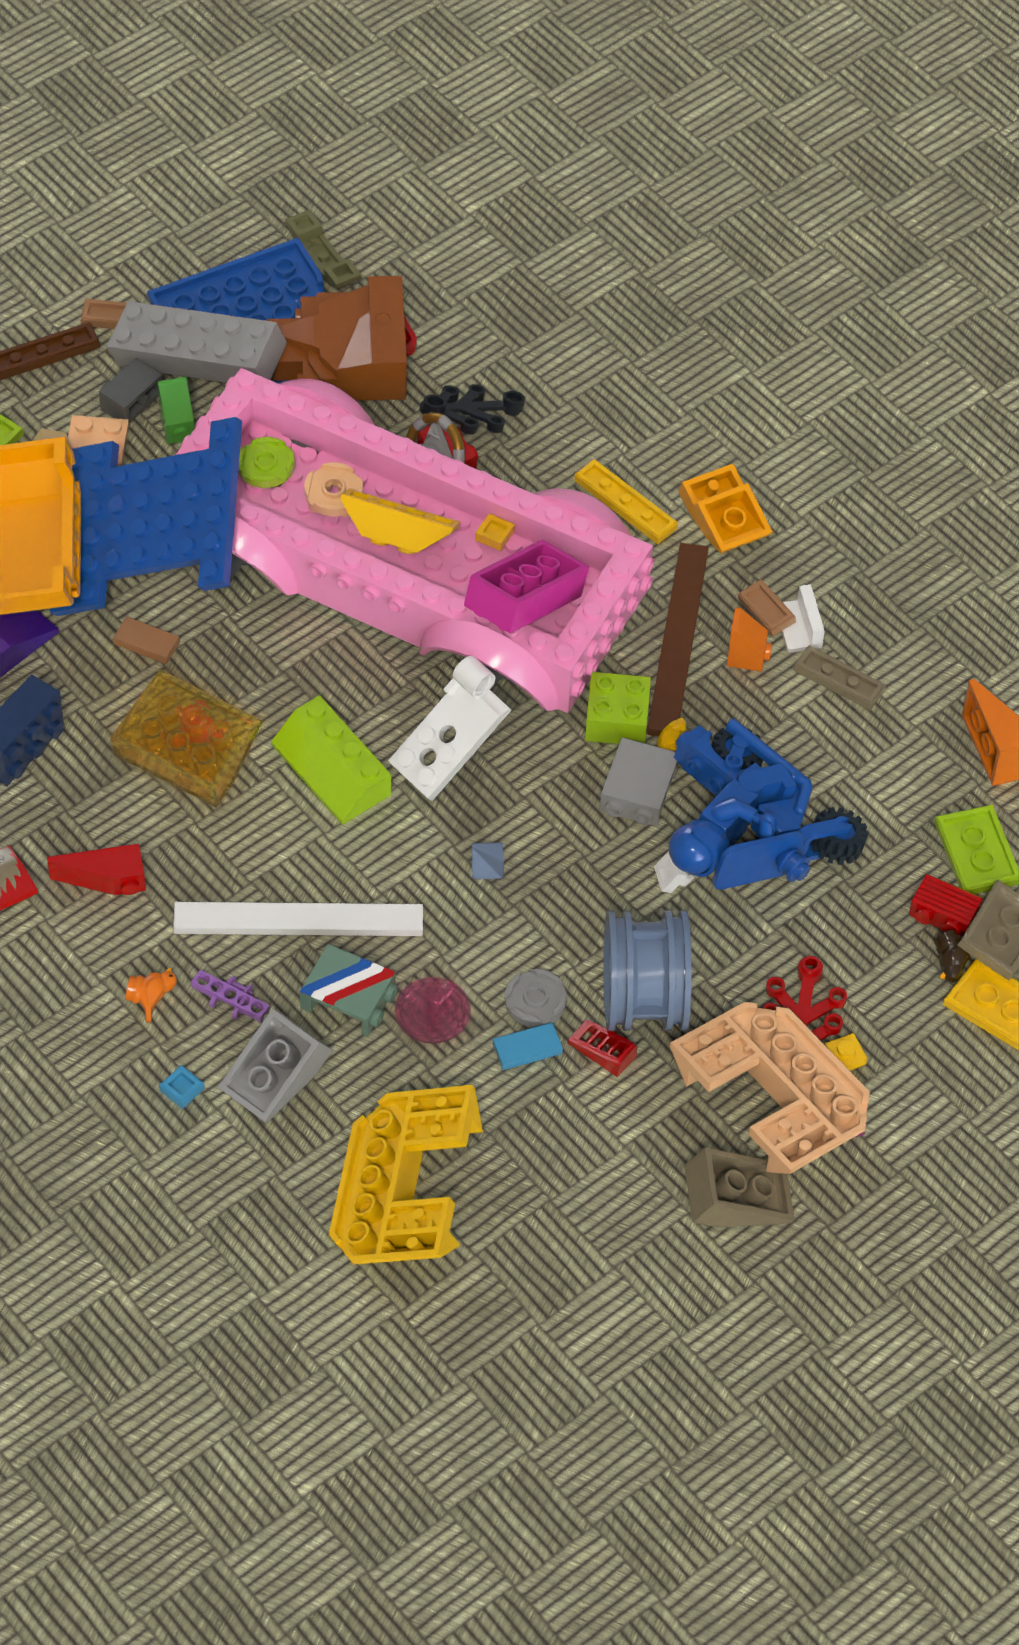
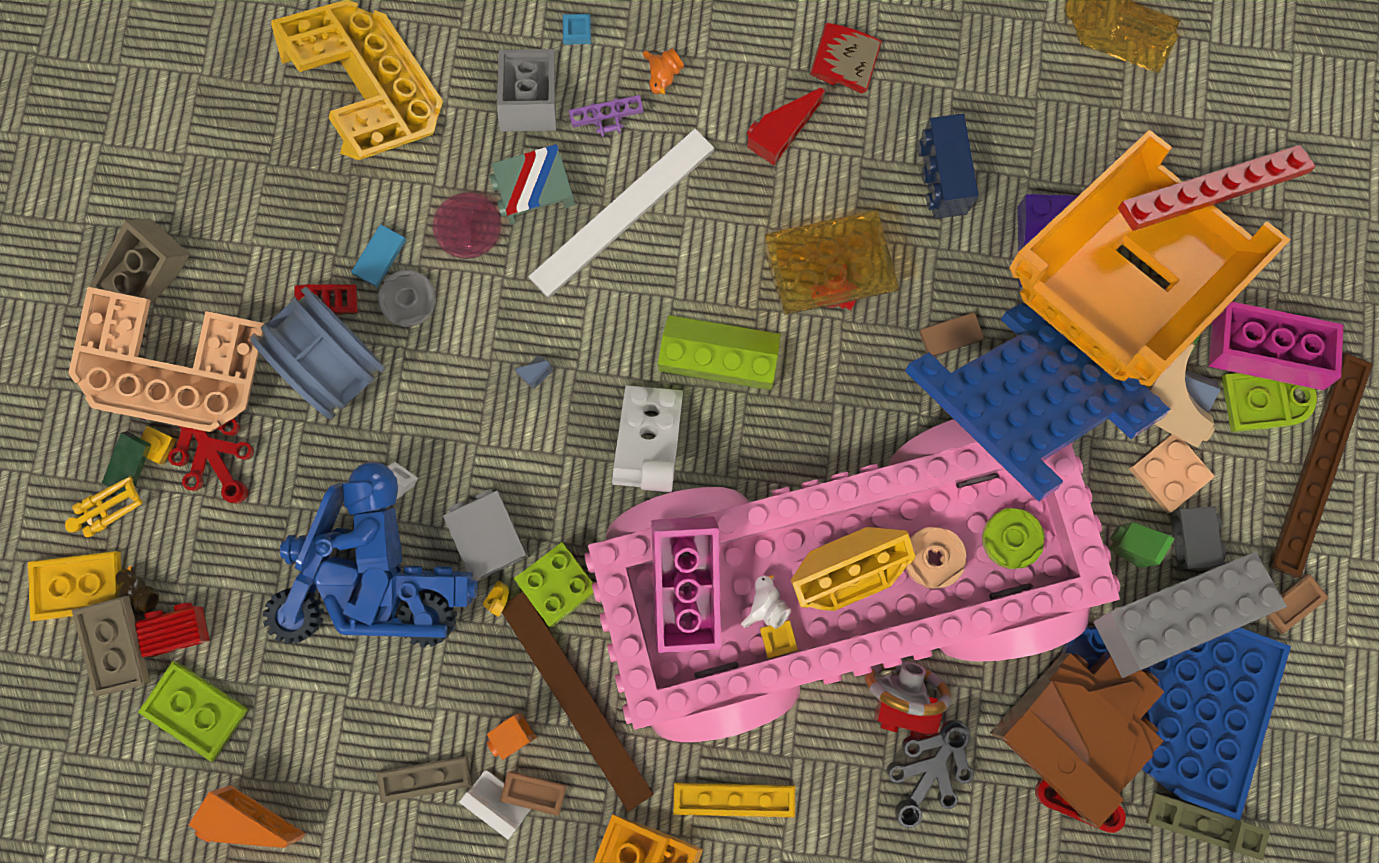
camera: 140 degrees right, 25 degrees up
(481, 549) = (767, 604): none -> white animal
(879, 1048) = (126, 460): none -> dark green tile
(941, 1029) = (74, 524): none -> yellow piece

